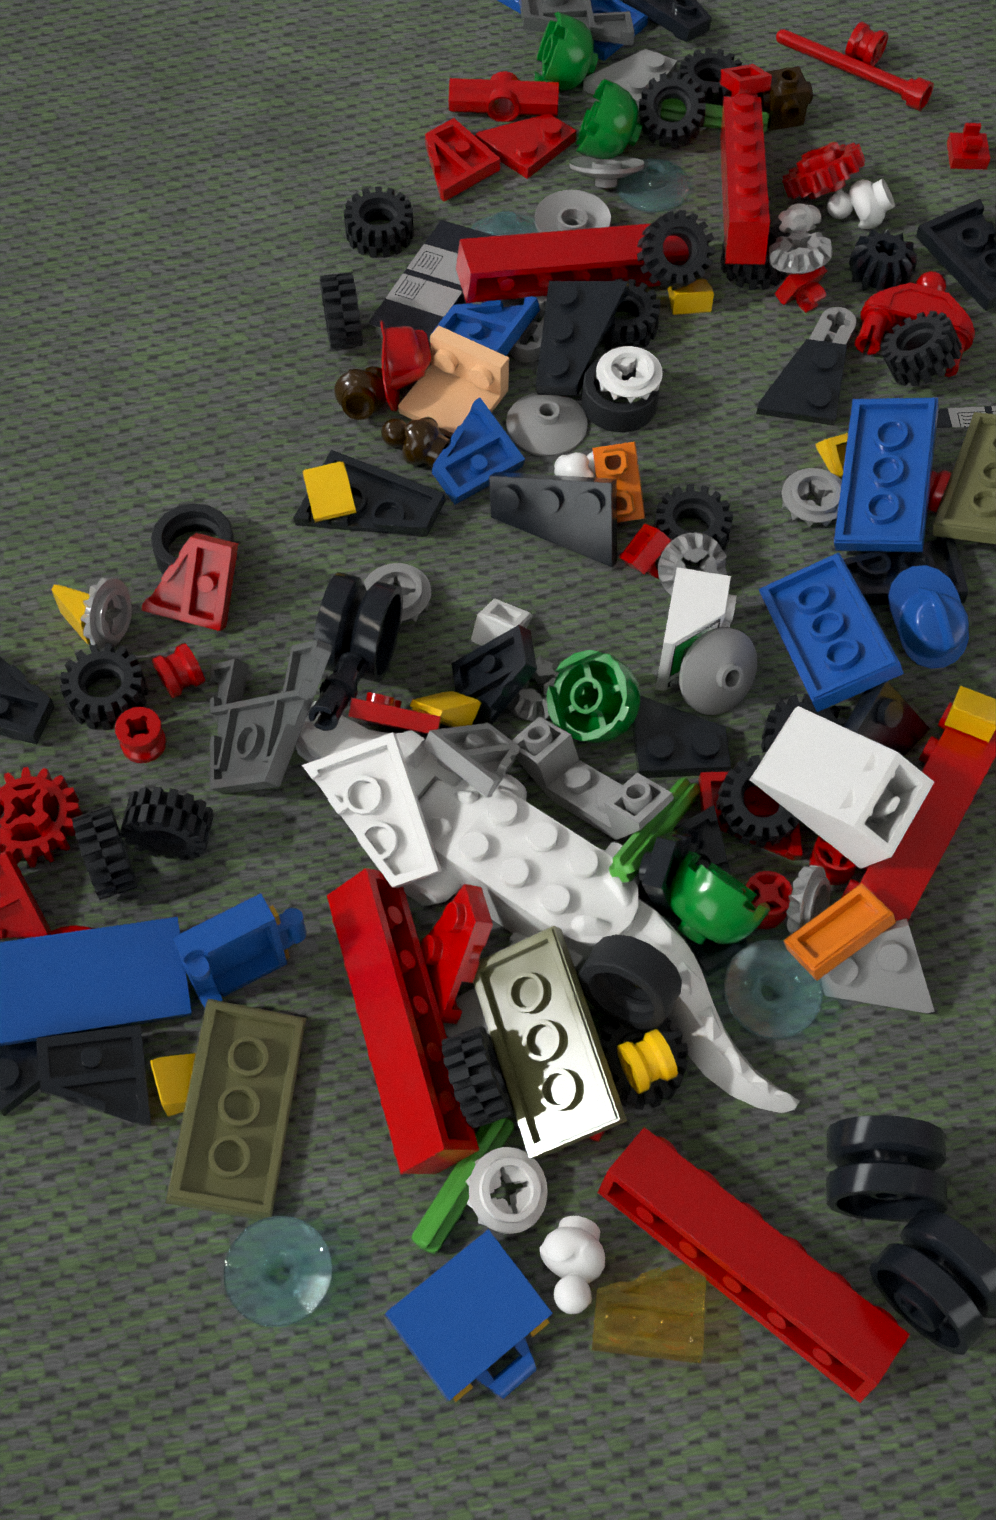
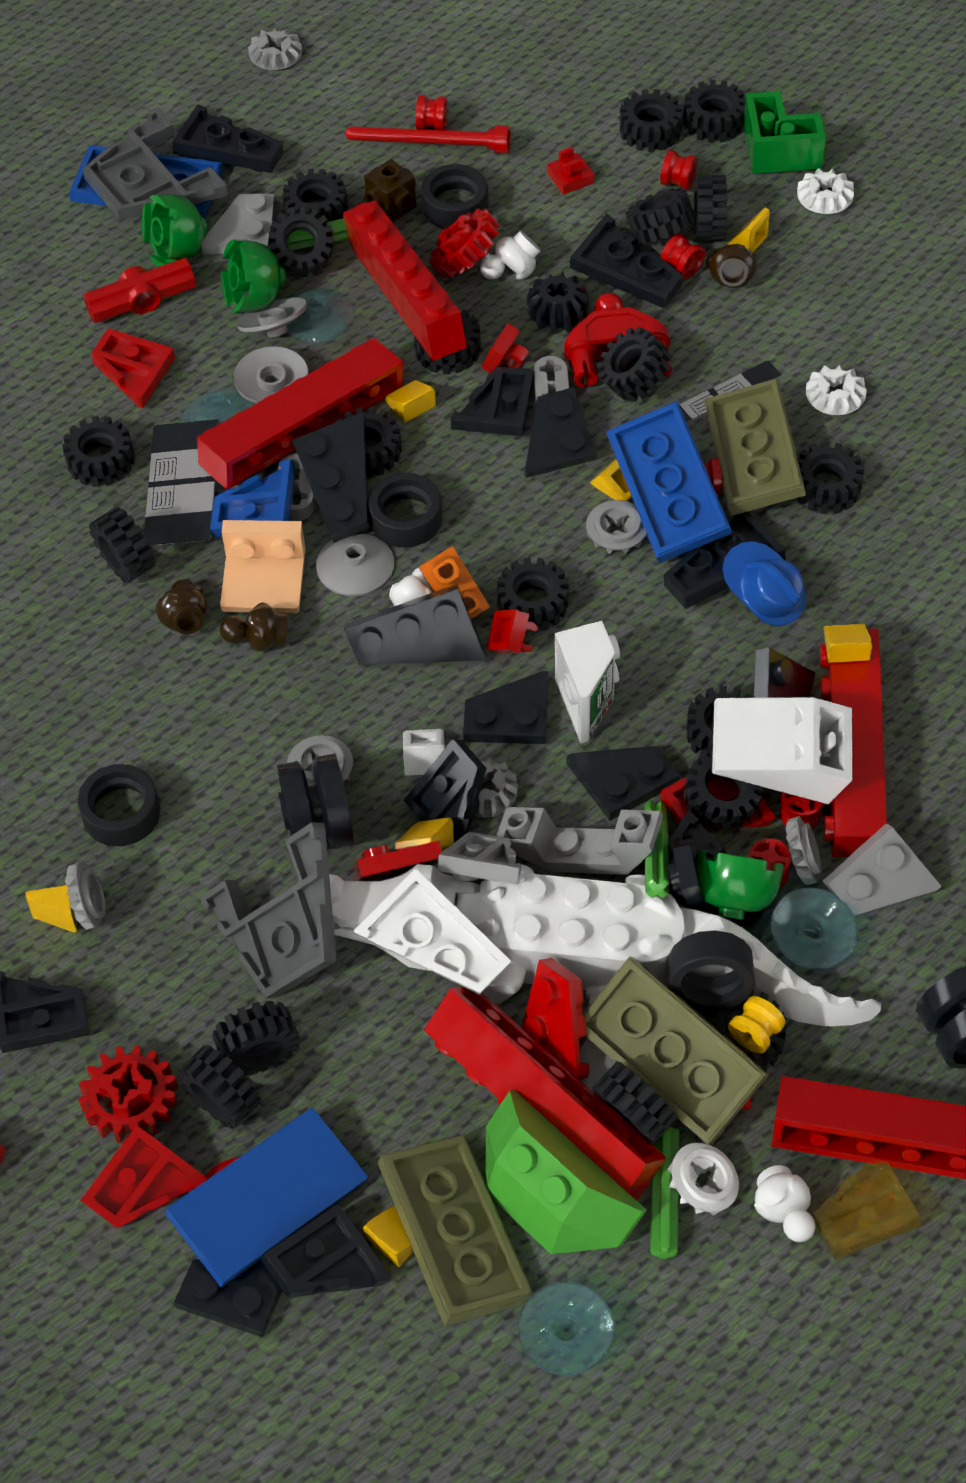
camera: 25 degrees left, 5 degrees down
(96, 666) = (114, 937): black tyre -> none
(143, 746) = (188, 987): red wheel -> none
(178, 670) = (177, 914): red wheel -> none
(197, 583) = (148, 834): red wing -> none
(238, 947) = (383, 1103): blue piece -> none
(329, 491) = (213, 704): yellow slope -> none
(338, 691) = (341, 862): black pin -> none
(355, 1116) = (552, 1184): none -> bright green wedge
(381, 502) = (245, 696): black wing -> none
(404, 359) = (204, 557): red piece -> none
(470, 1318) = (734, 1284): blue piece -> none
(474, 454) = (315, 617): blue wing -> none
(529, 142) = (185, 322): red wing -> none
(593, 697) = (542, 769): green cylinder -> none
(603, 624) = (509, 713): none -> black wing
(622, 362) = (396, 481): white gear -> none
(692, 547) = (550, 611): light grey gear -> none
(695, 239) = (403, 357): black tyre -> none
(718, 671) = (628, 703): light grey dish -> none
(746, 80) = (352, 190): red tile -> none
(769, 333) = (498, 404): none -> black wing
(799, 218) = (468, 294): white axle -> none
(800, 252) = (499, 321): light grey gear -> none
(830, 632) = (698, 630): blue tile -> none
(839, 931) = (842, 858): orange tile -> none
(846, 109) = (452, 177): none -> black tyre

